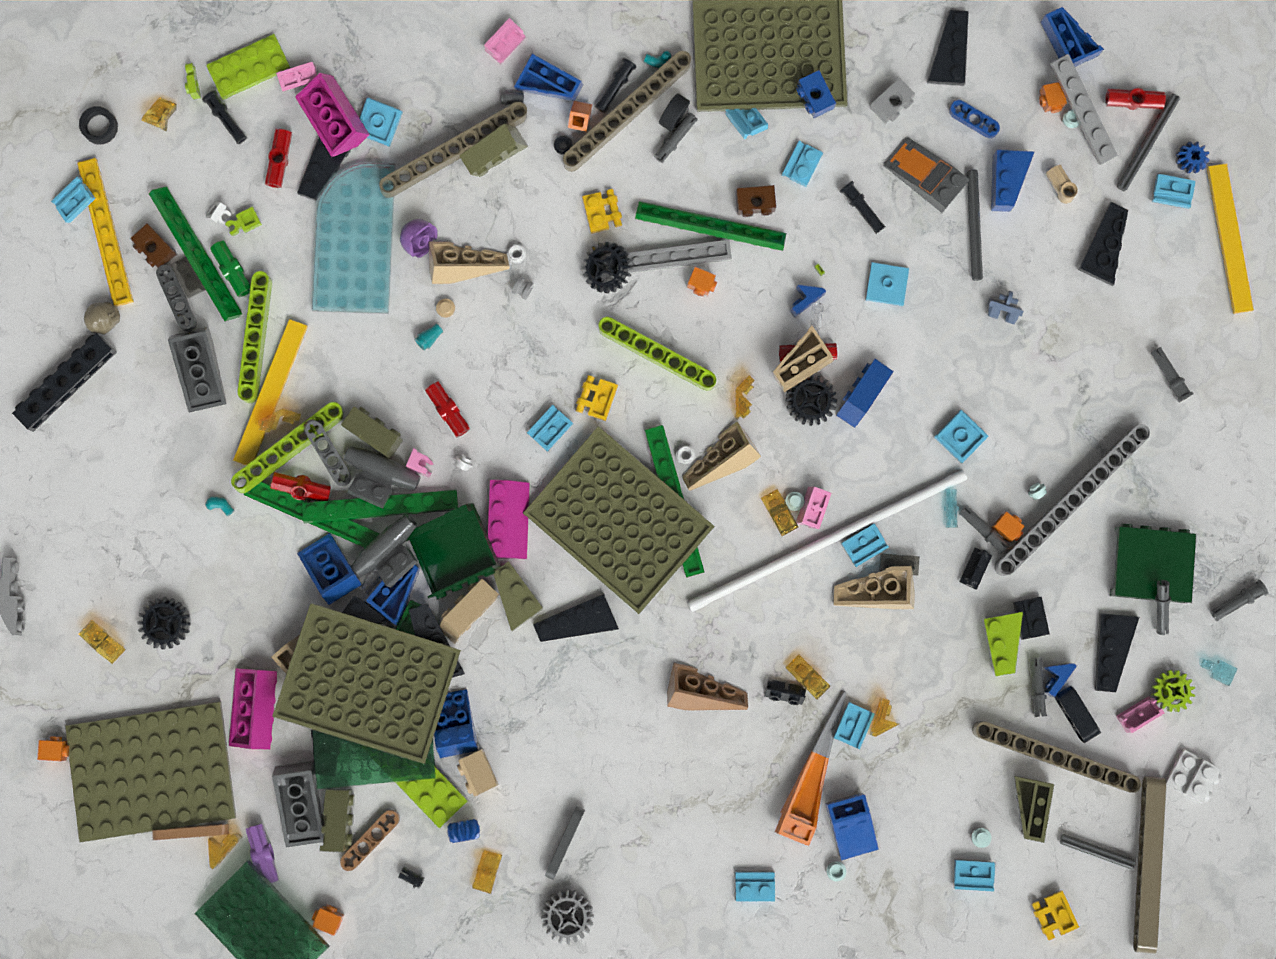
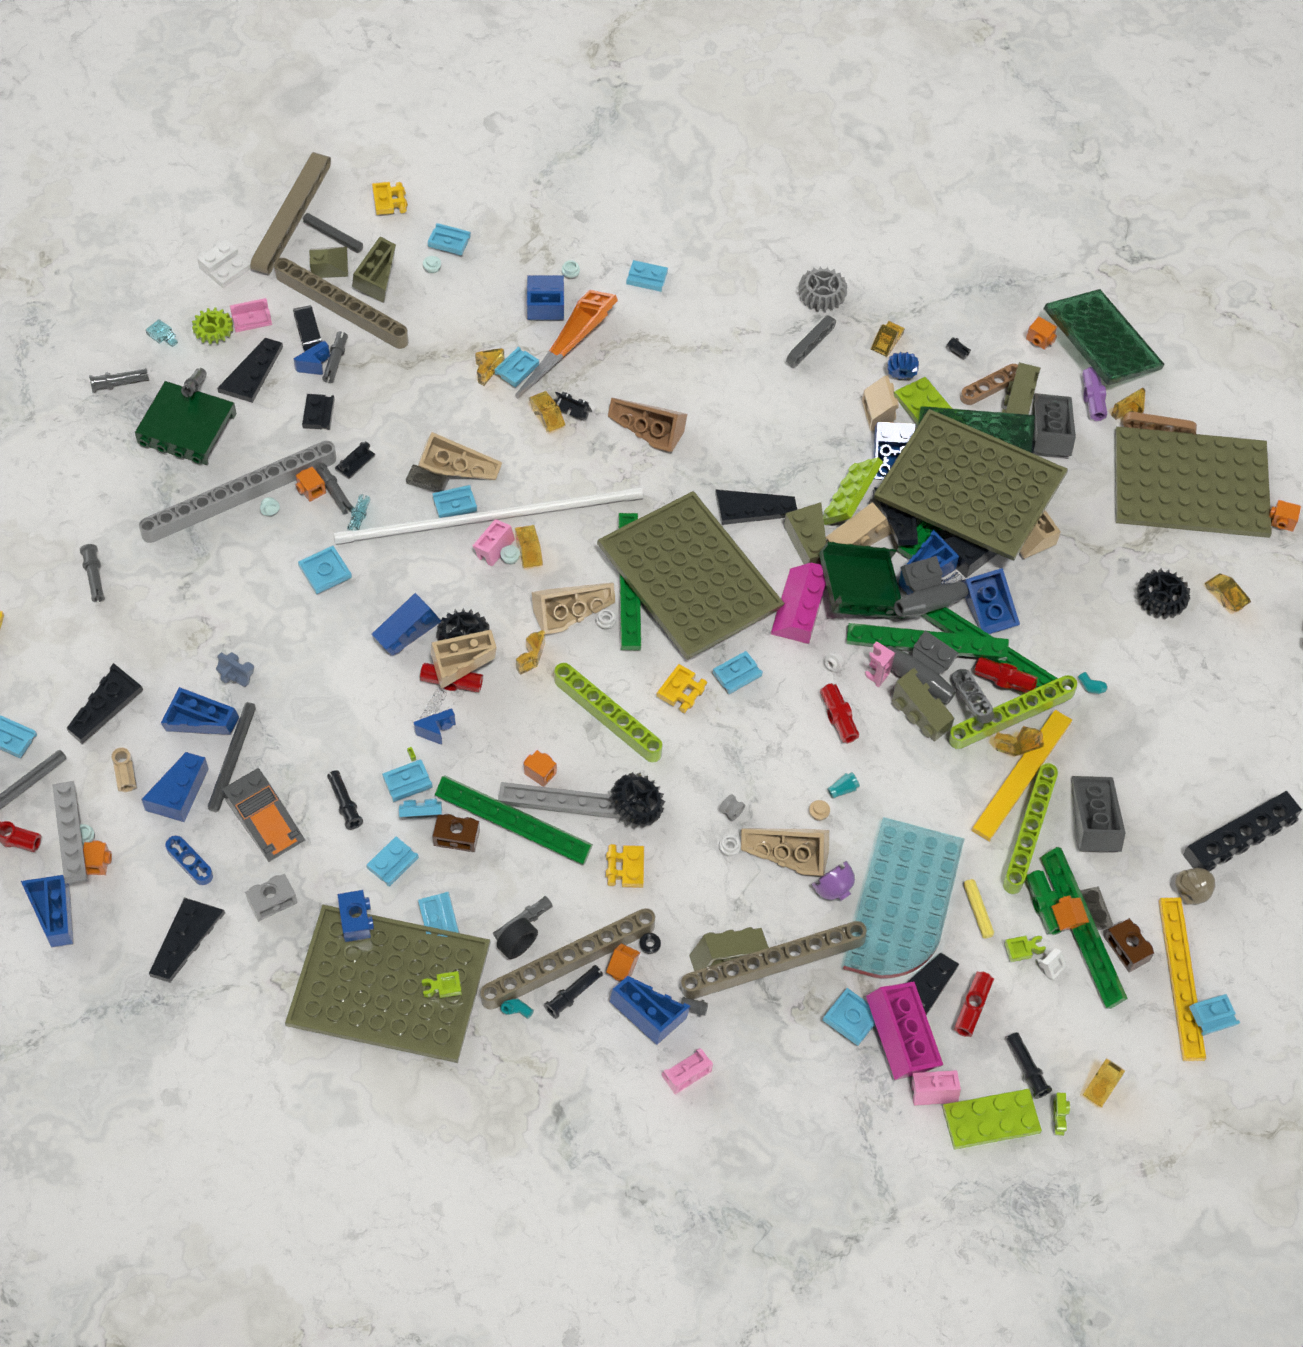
camera: 165 degrees left, 25 degrees down
(91, 112) = (1183, 1077): black tyre -> none
(173, 299) = (1113, 885): dark grey beam -> none
(207, 252) = (1070, 913): none -> orange brick
(253, 709) = (1085, 504): dark pink slope -> none
(289, 250) = (979, 908): none -> light yellow axle
(484, 657) = (851, 490): none -> lime plate
(720, 55) = (446, 984): none -> lime plate
(793, 212) = (411, 808): none -> medium azure plate
(814, 240) = (407, 780): none -> medium azure plate
(887, 284) = (345, 723): medium azure plate -> none
(1003, 640) = (351, 396): lime wedge -> none
(1017, 251) = (198, 714): none -> blue wedge
(1088, 811) = (329, 262): none -> olive slope

